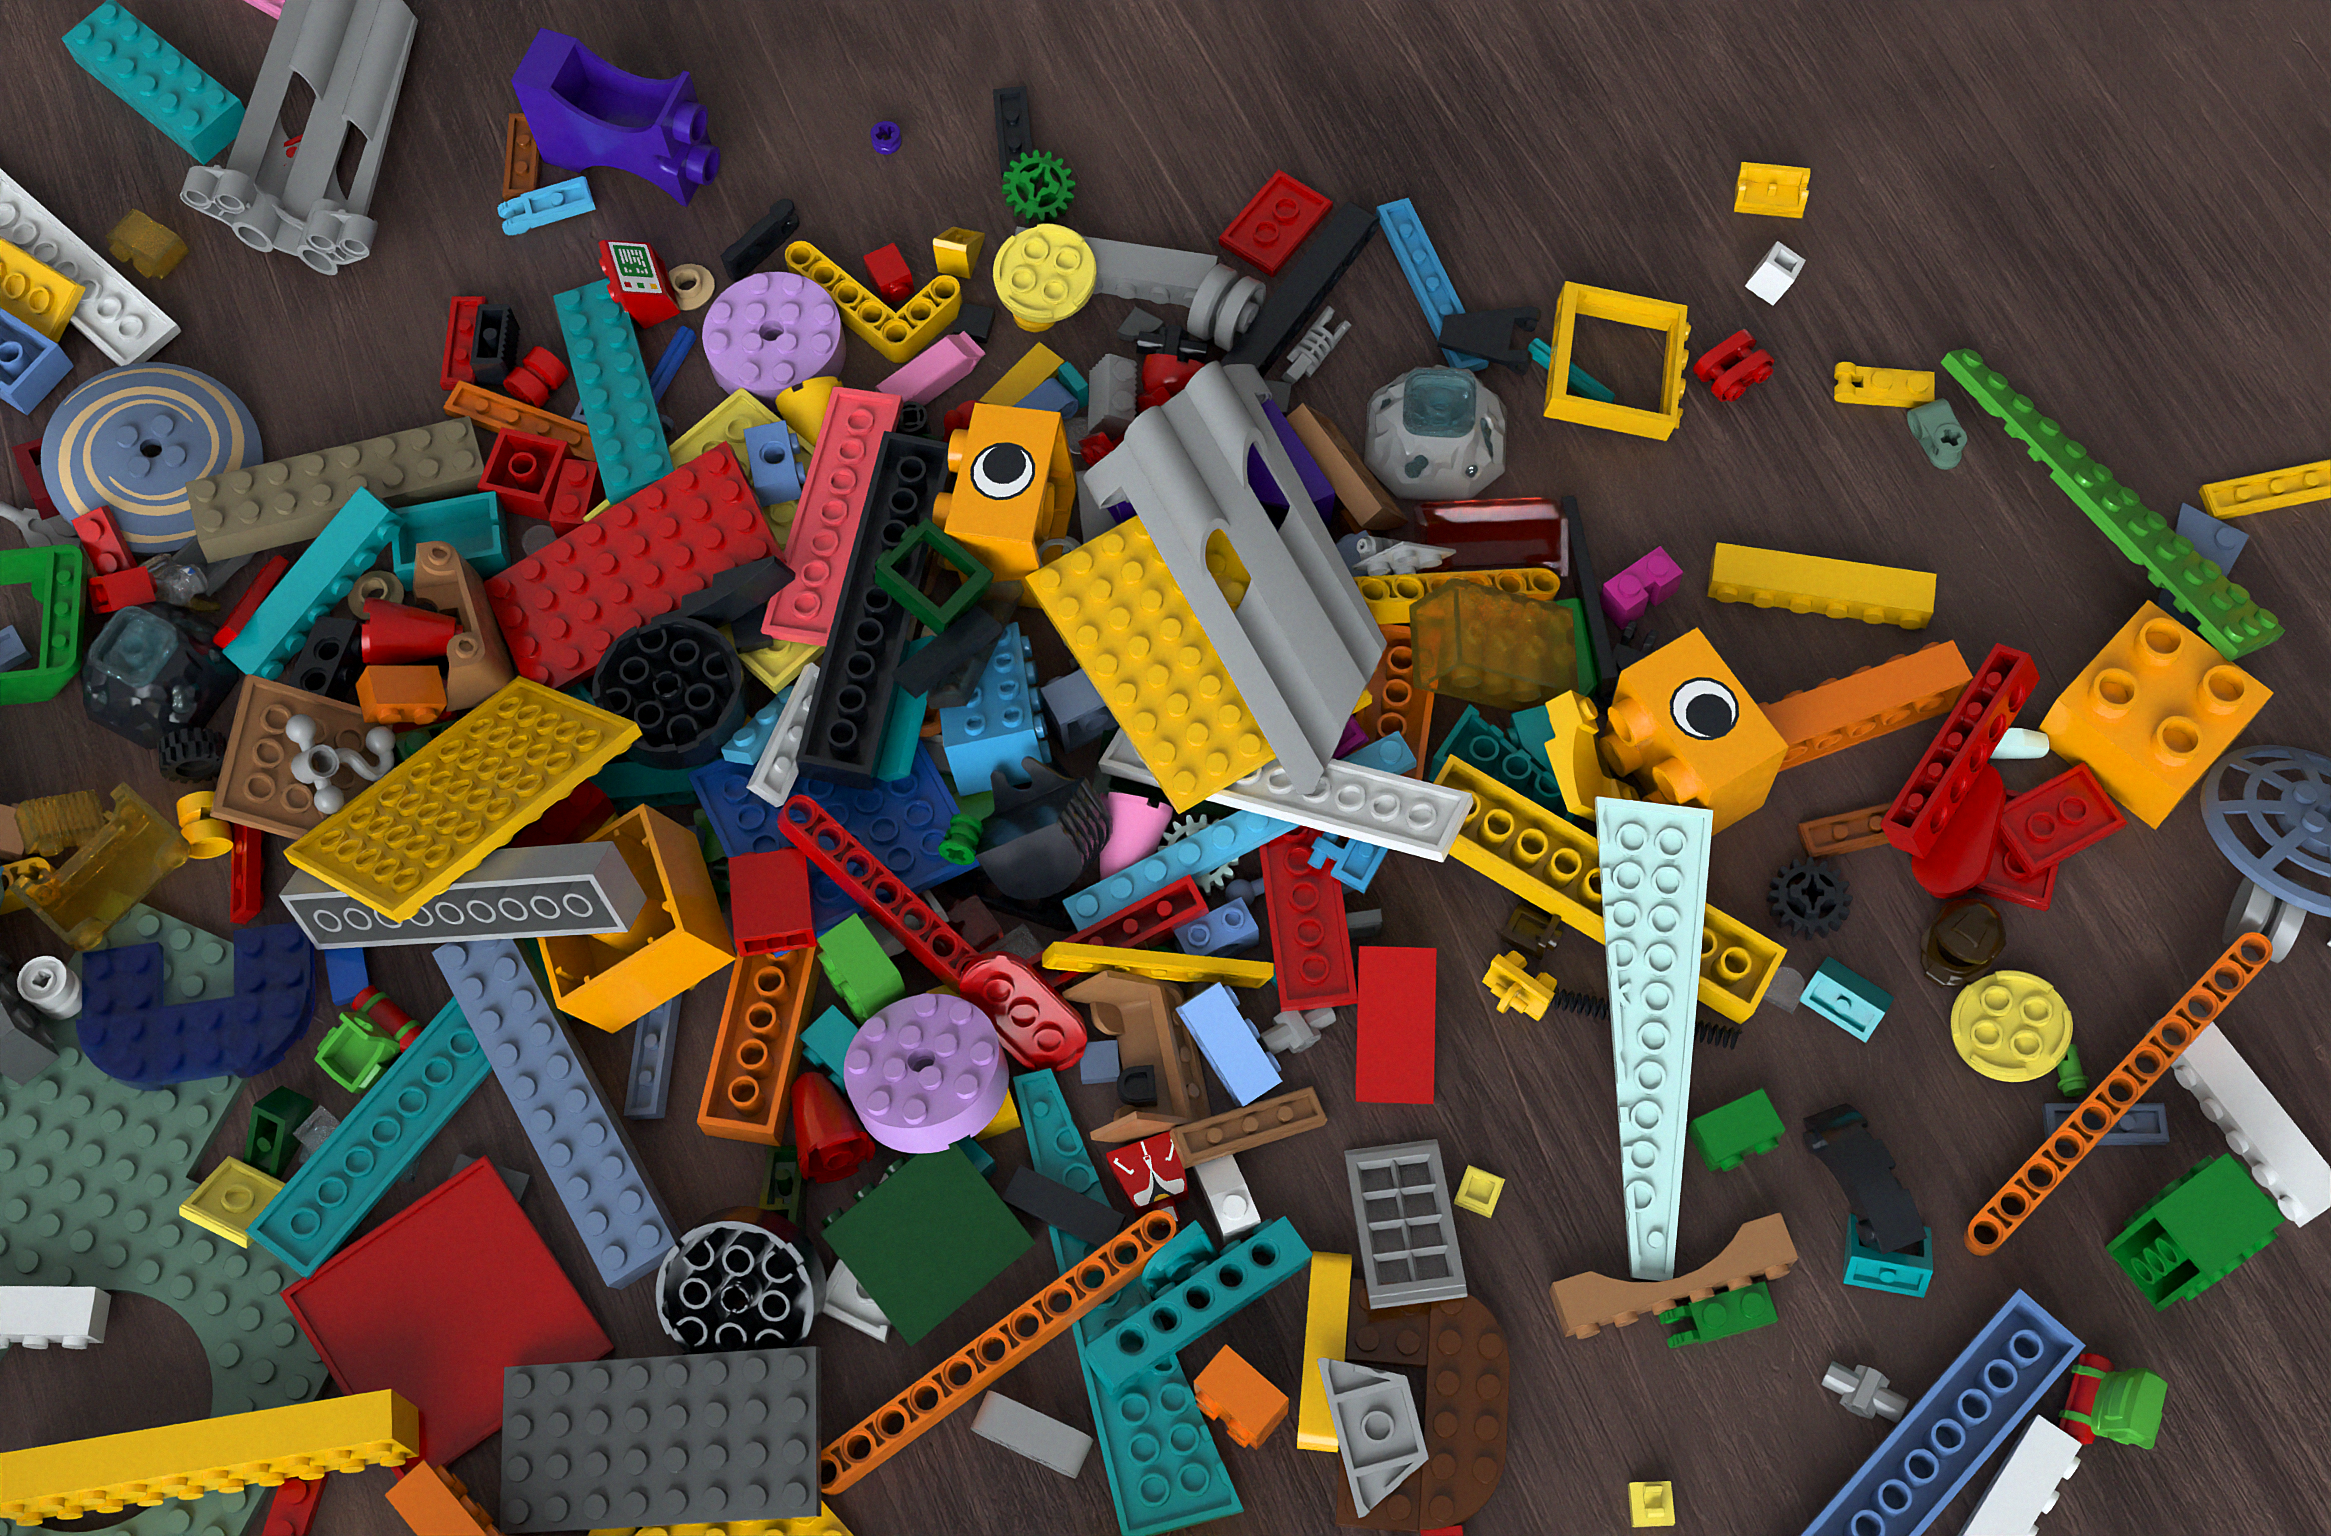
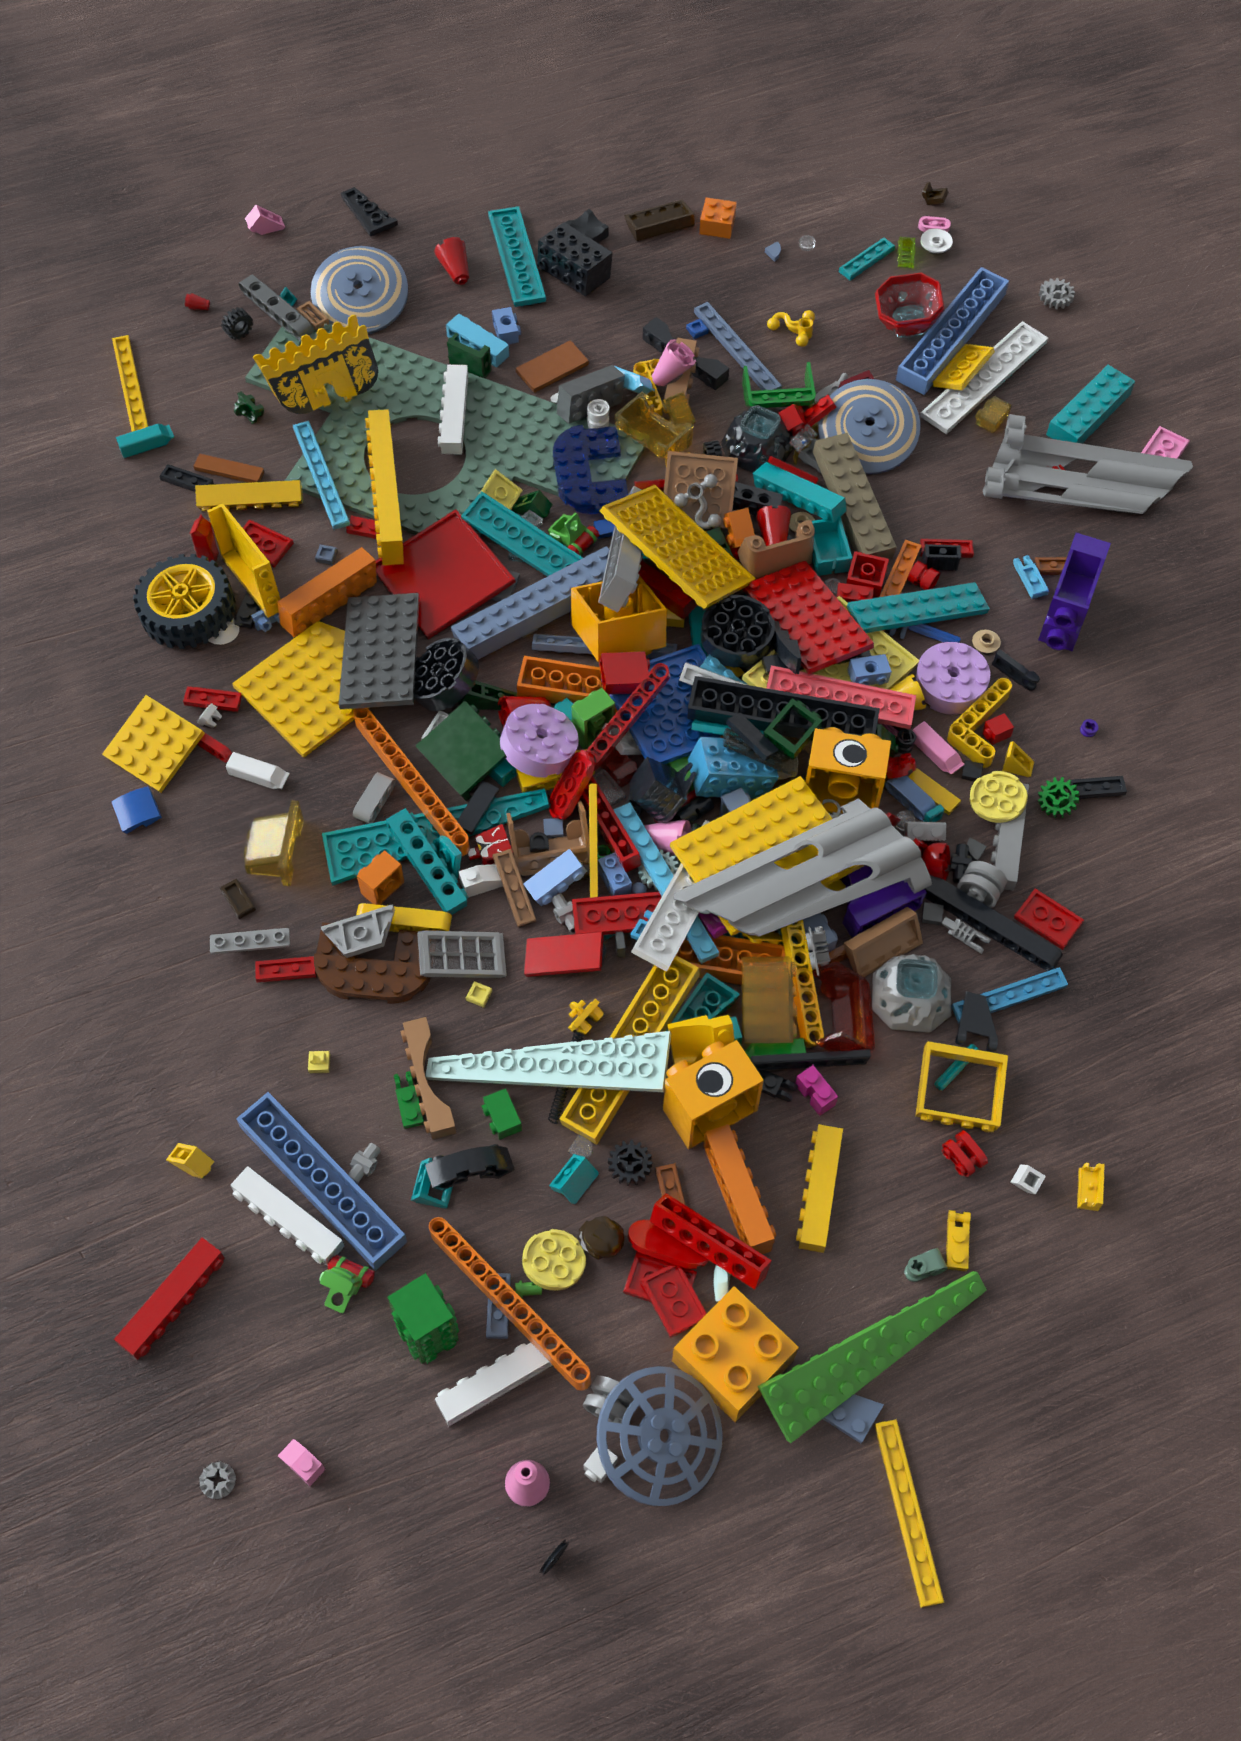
camera: 85 degrees right, 5 degrees down
(639, 281) = (981, 613): red slope -> none
(961, 839) = (657, 752): green bush -> none
(1532, 931) = (610, 1023): dark brown bracket -> none

